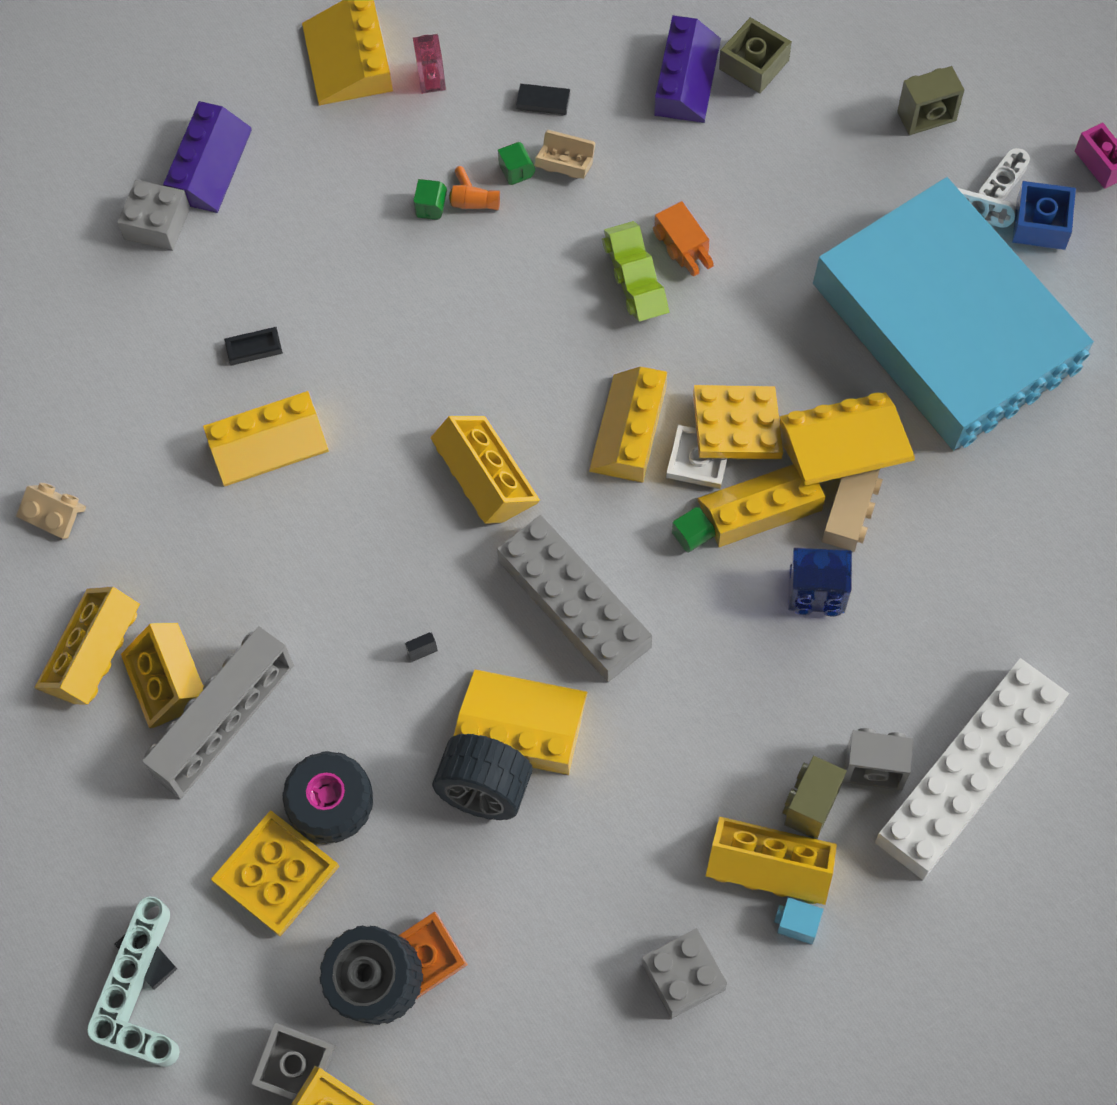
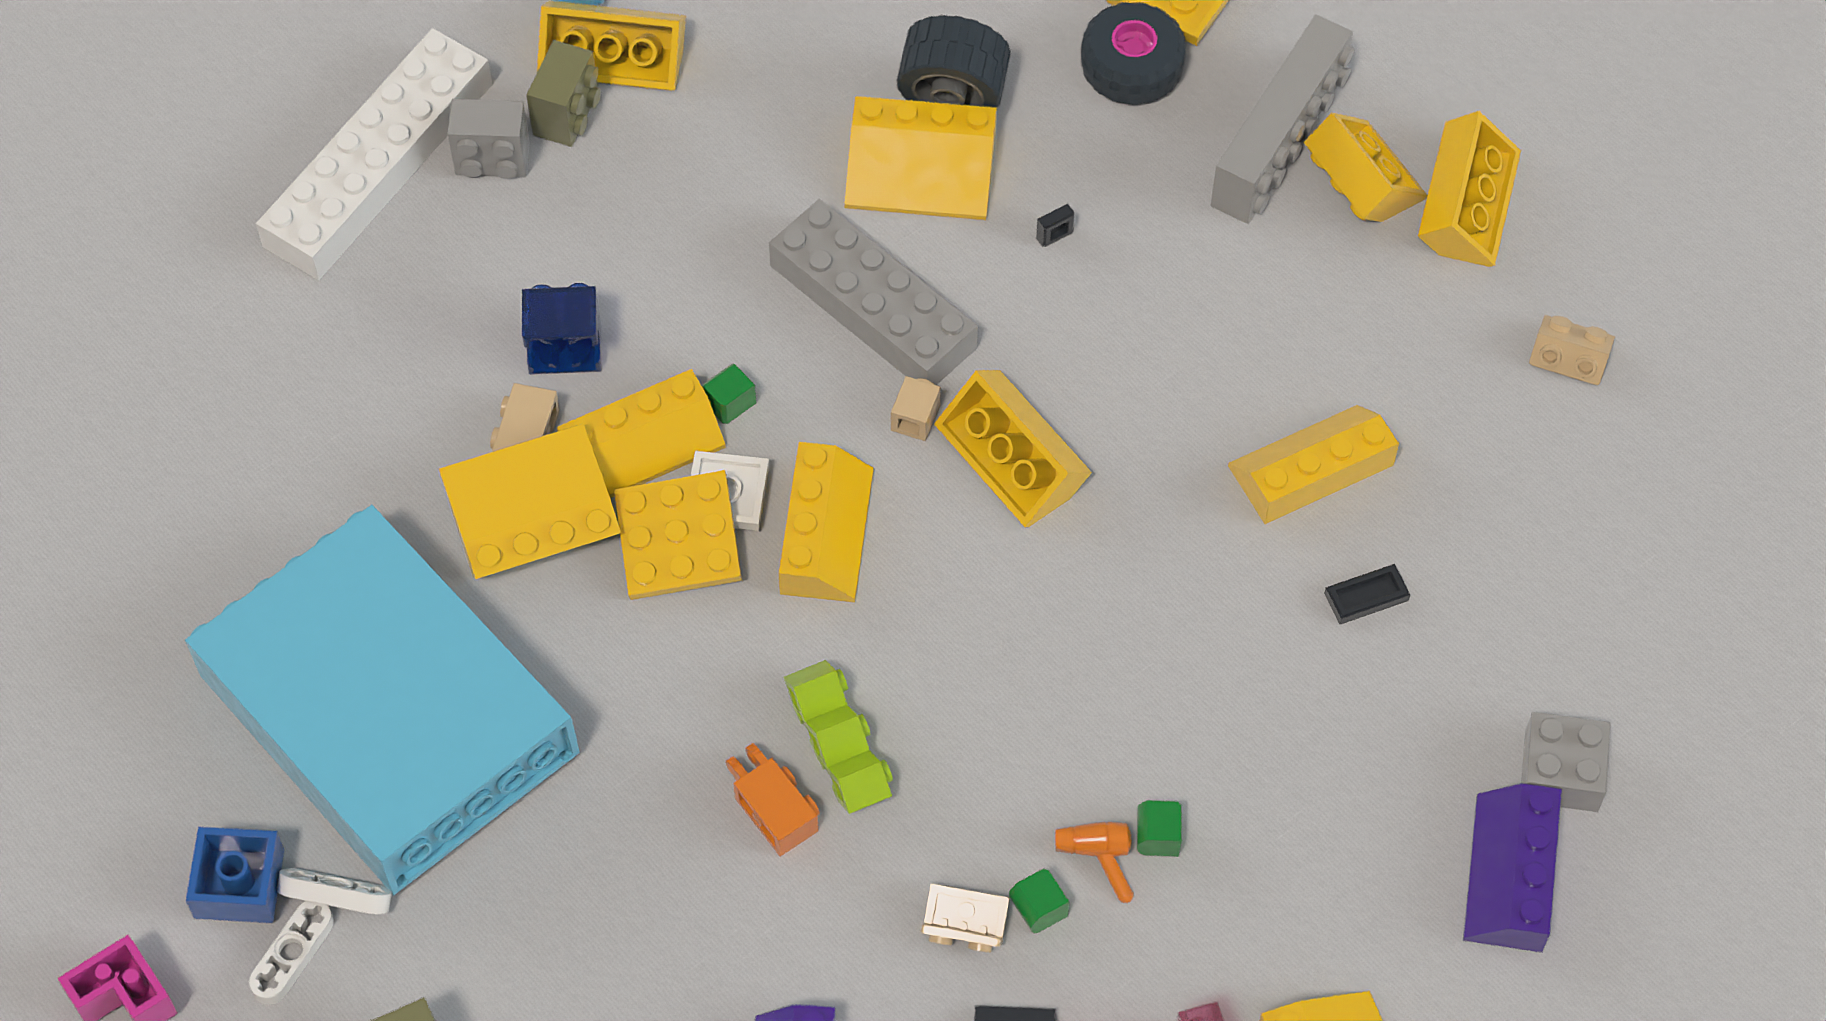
camera: 170 degrees right, 5 degrees down
(553, 503) = (915, 408): none -> tan brick

